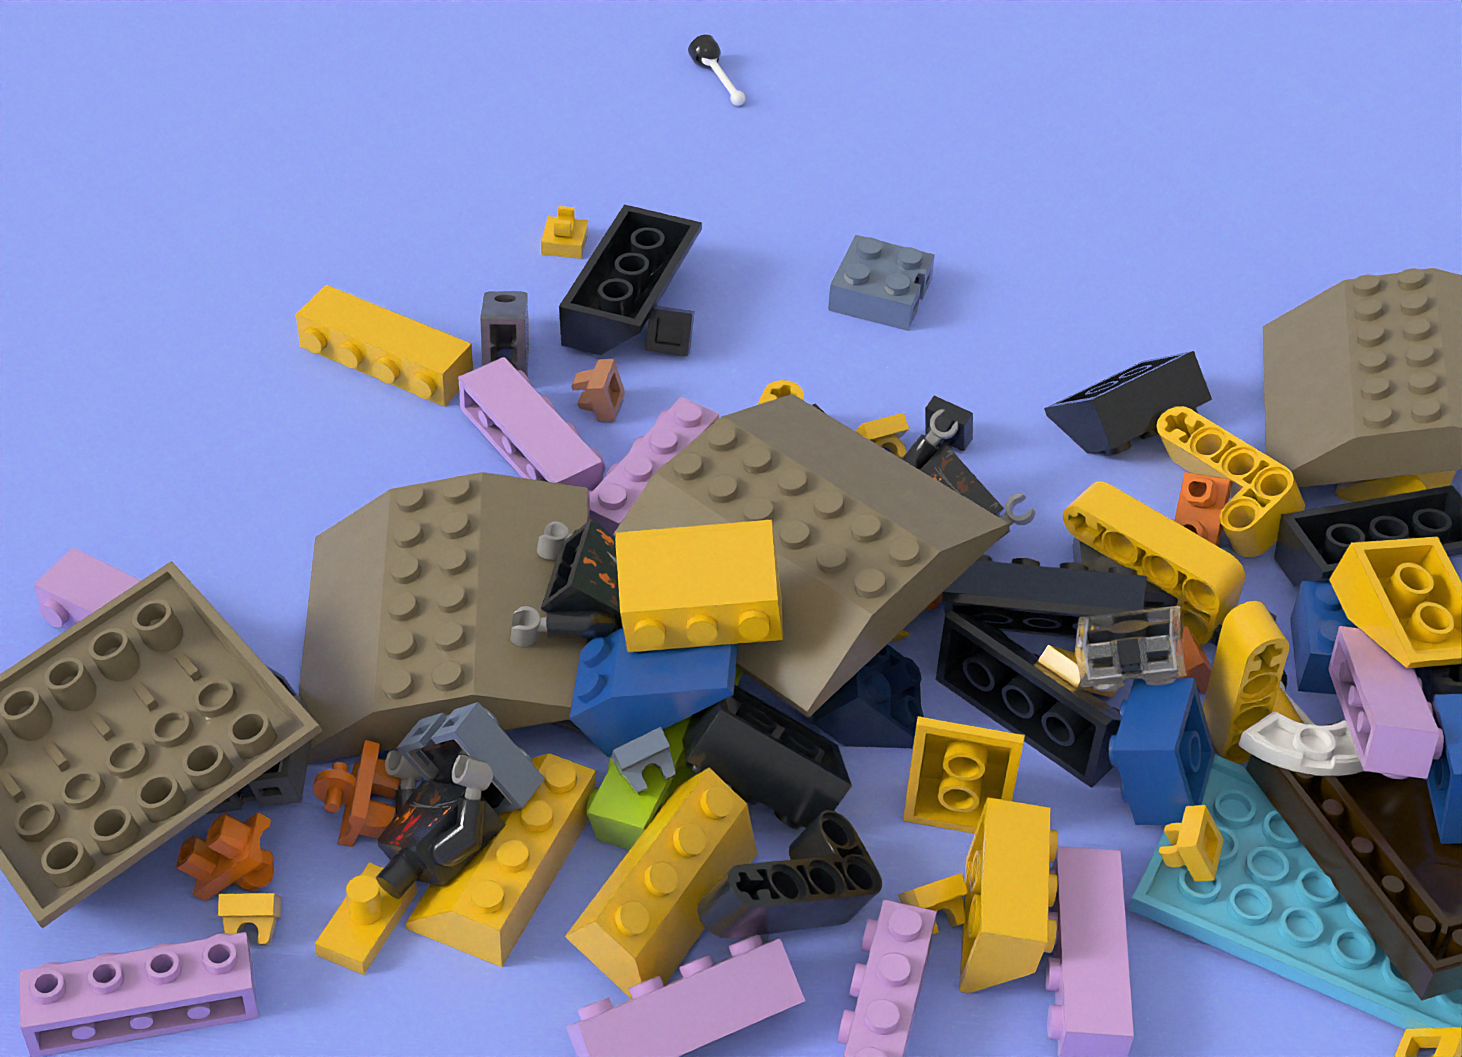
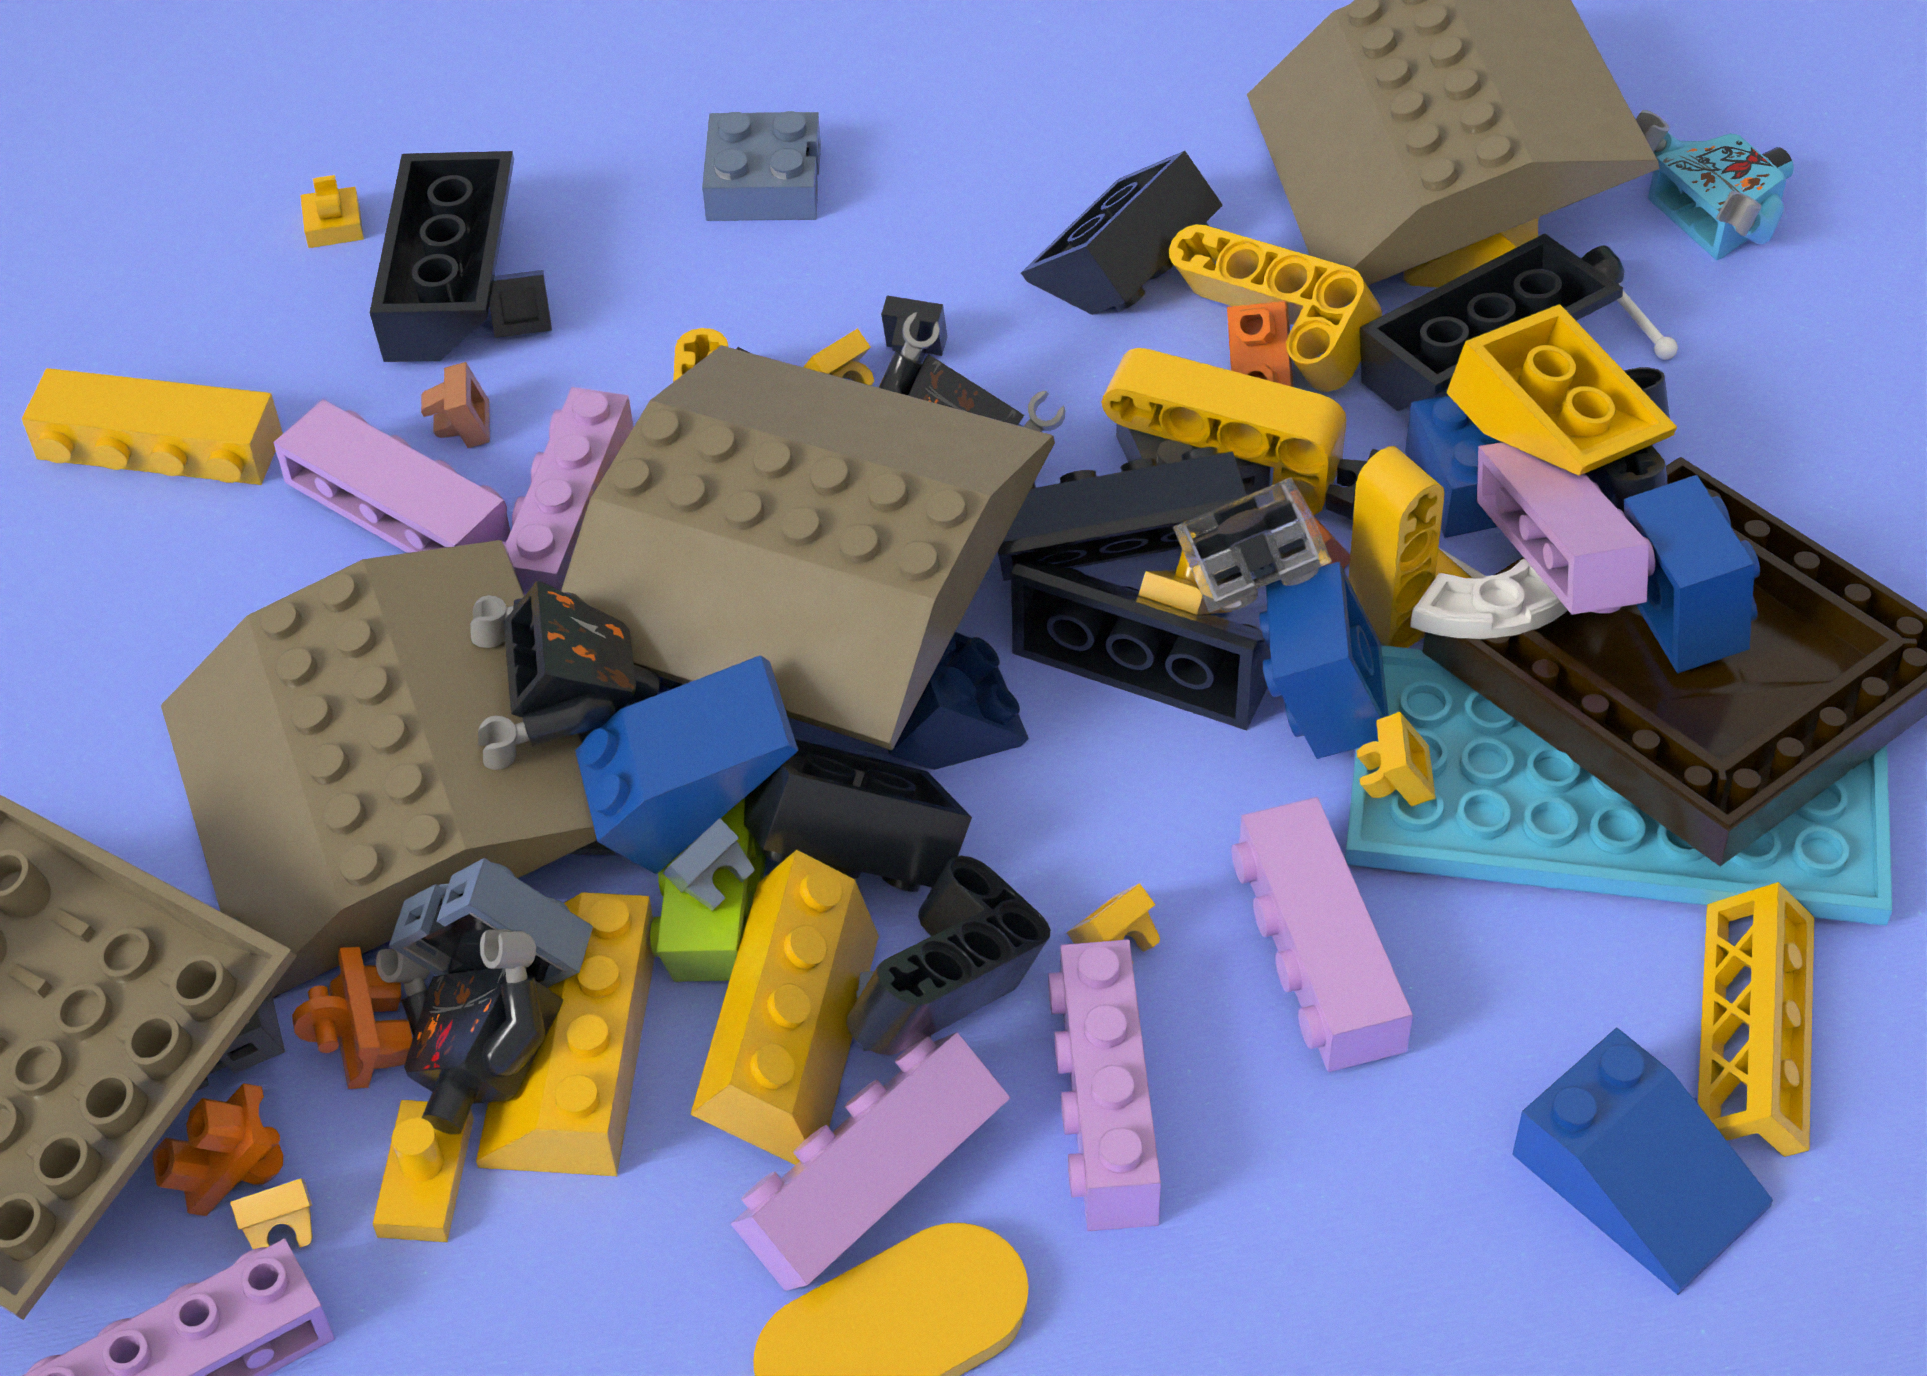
camera: 15 degrees left, 5 degrees up
(505, 326) = (307, 357): flat silver torso -> none
(699, 586) = (710, 627): yellow slope -> none
(956, 771) = (1099, 766): yellow slope -> none
(1008, 895) = (1205, 891): yellow slope -> none

